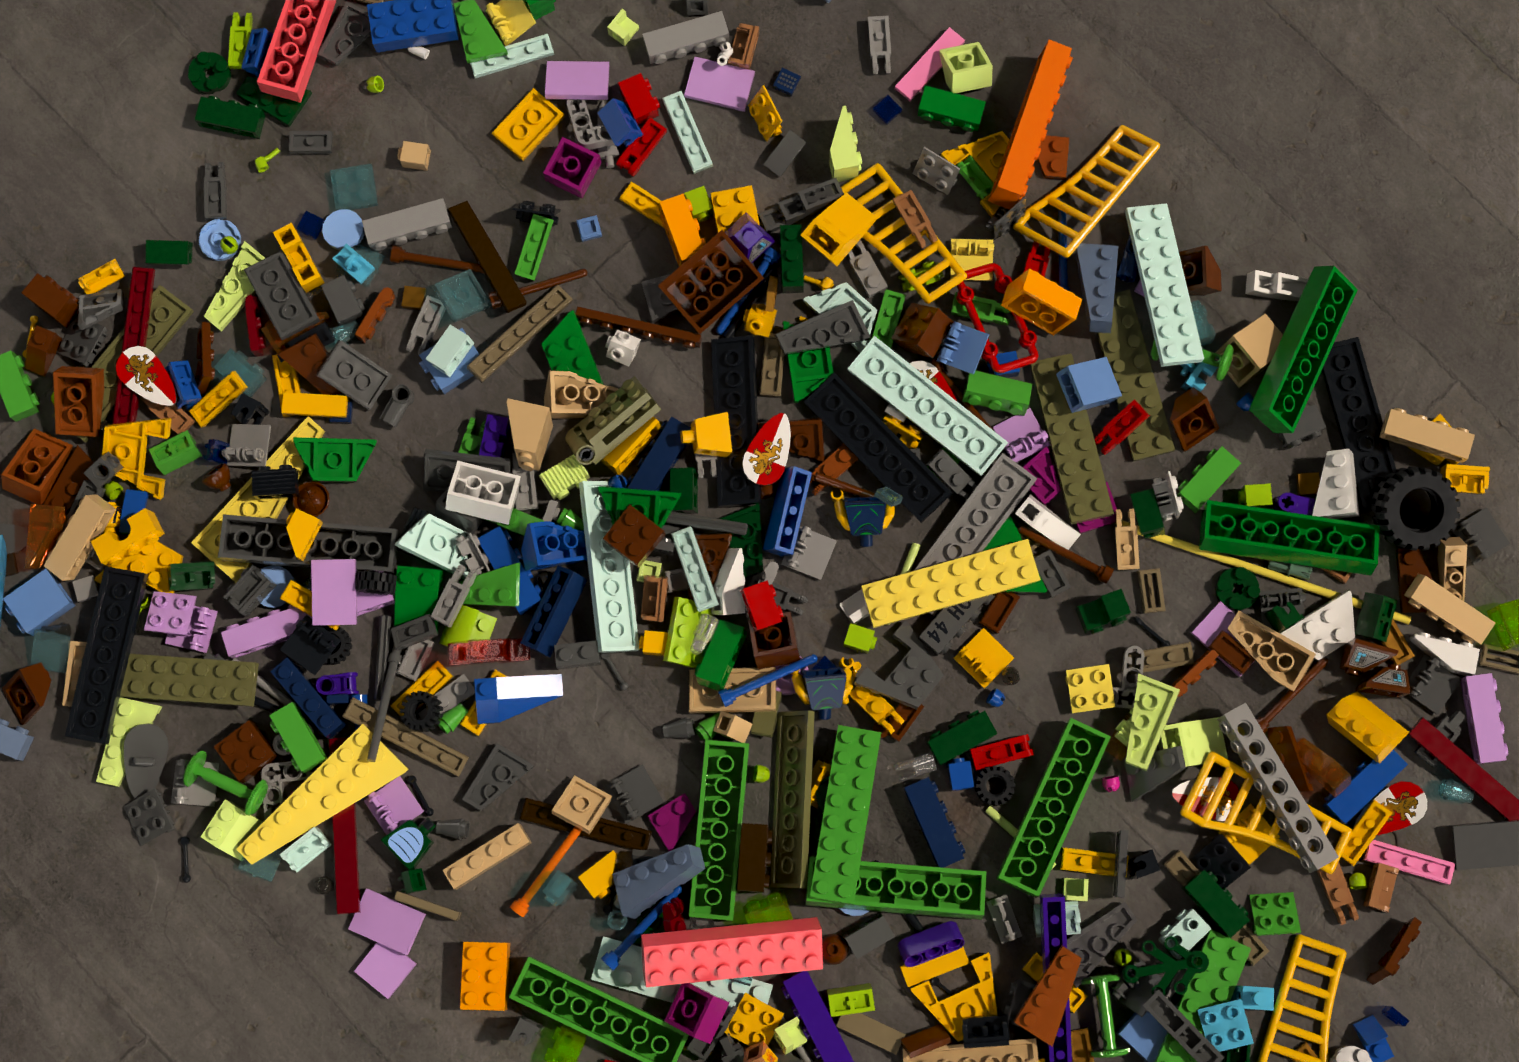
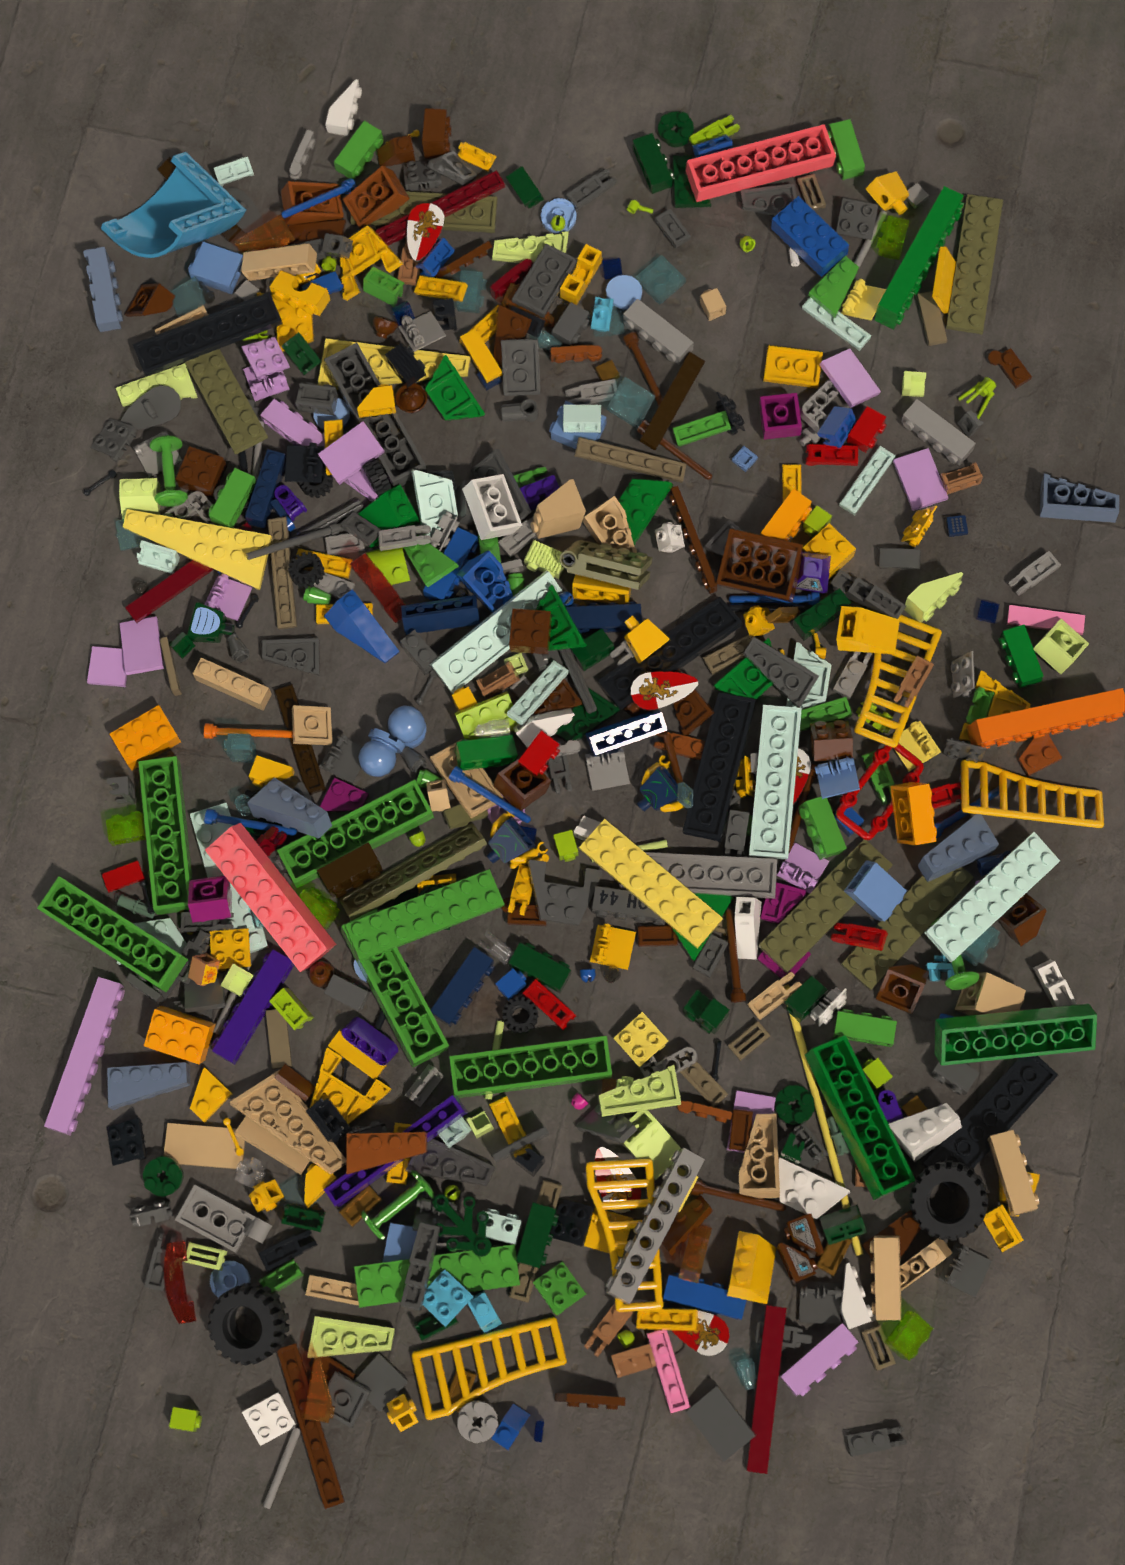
camera: 60 degrees right, 5 degrees down
(45, 421) = (346, 188): none -> blue piece
(644, 714) = (407, 725): none -> medium blue tile
(655, 758) = (379, 754): none -> medium blue tile
(723, 56) = (944, 468): white arm -> none

